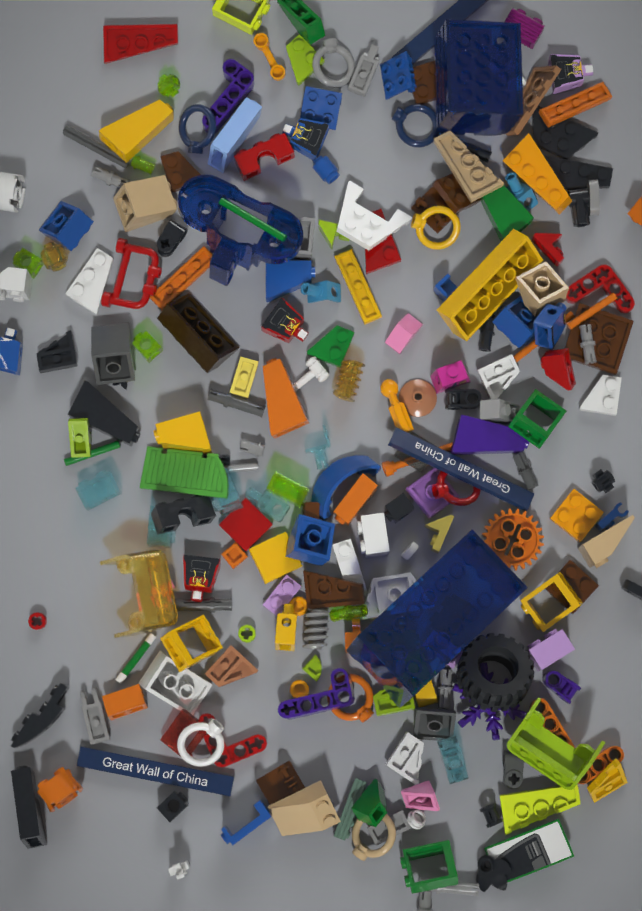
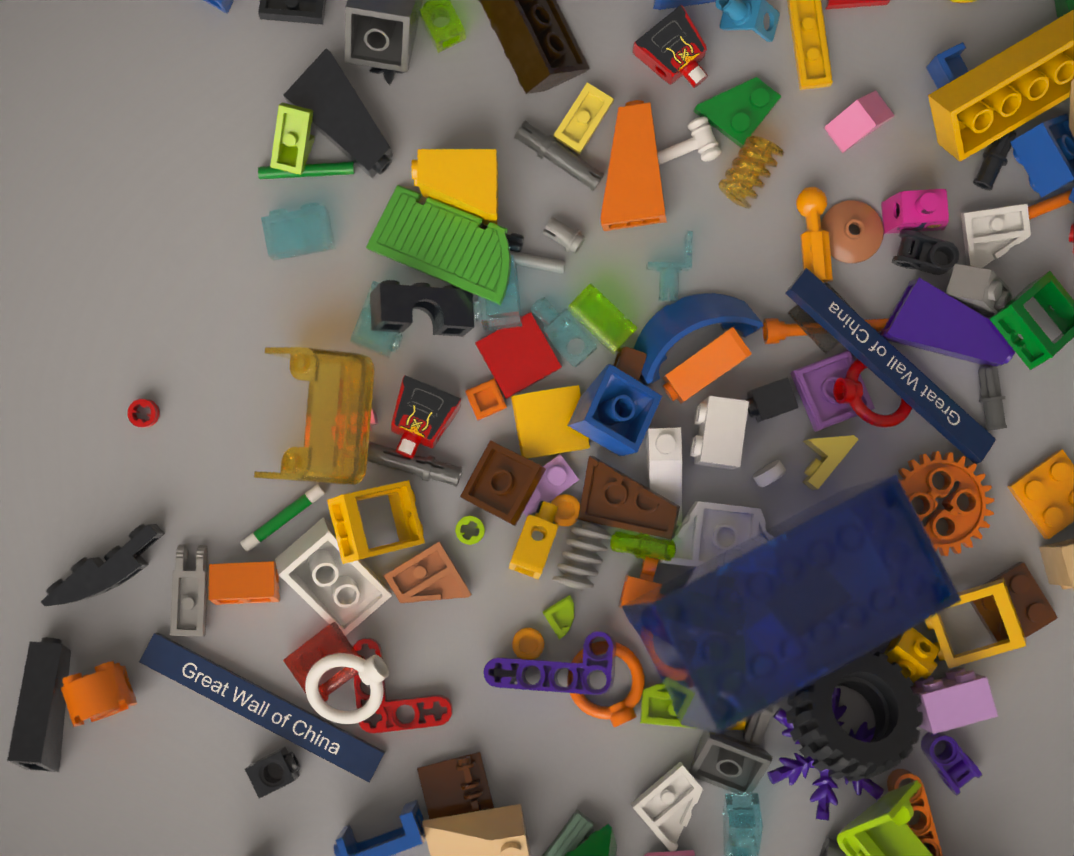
camera: 15 degrees right, 5 degrees up
(257, 600) = (502, 483): none -> reddish brown plate
(521, 630) = (913, 654): none -> yellow brick

